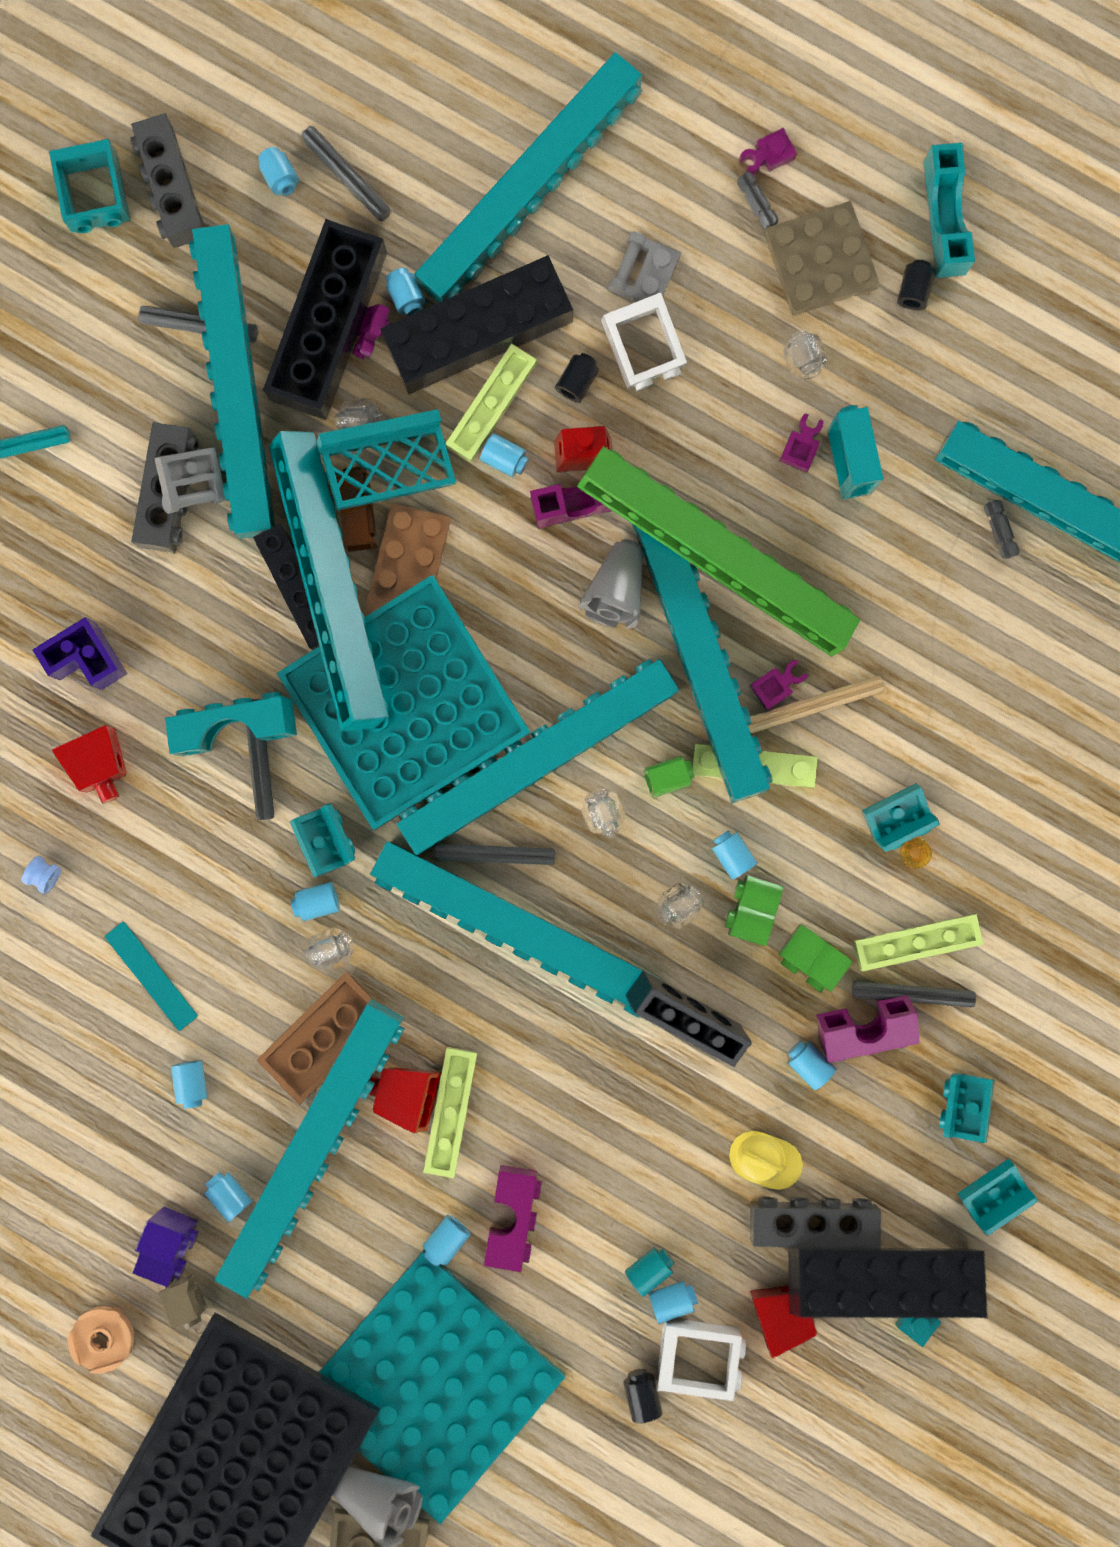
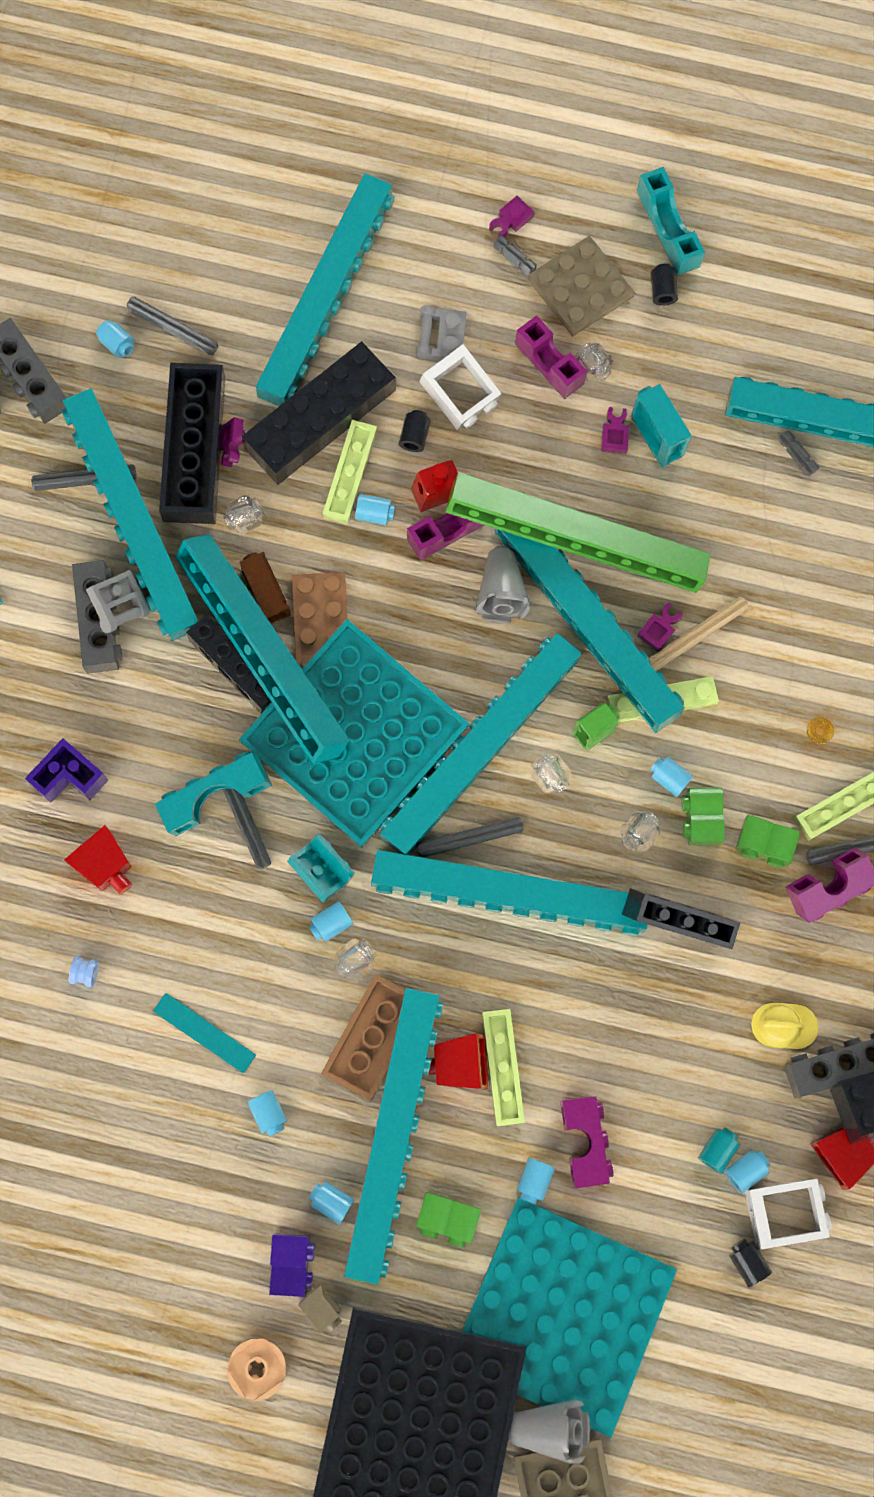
camera: 25 degrees left, 10 degrees down
(342, 1251) = (449, 1219): none -> bright green brick
(382, 433) = (263, 522): teal fence -> none
(405, 292) = (250, 403): medium azure brick -> none
(763, 352) = (561, 371): none -> magenta arch
(810, 1064) = (794, 930): medium azure brick -> none
(900, 818) = (797, 705): teal bracket -> none

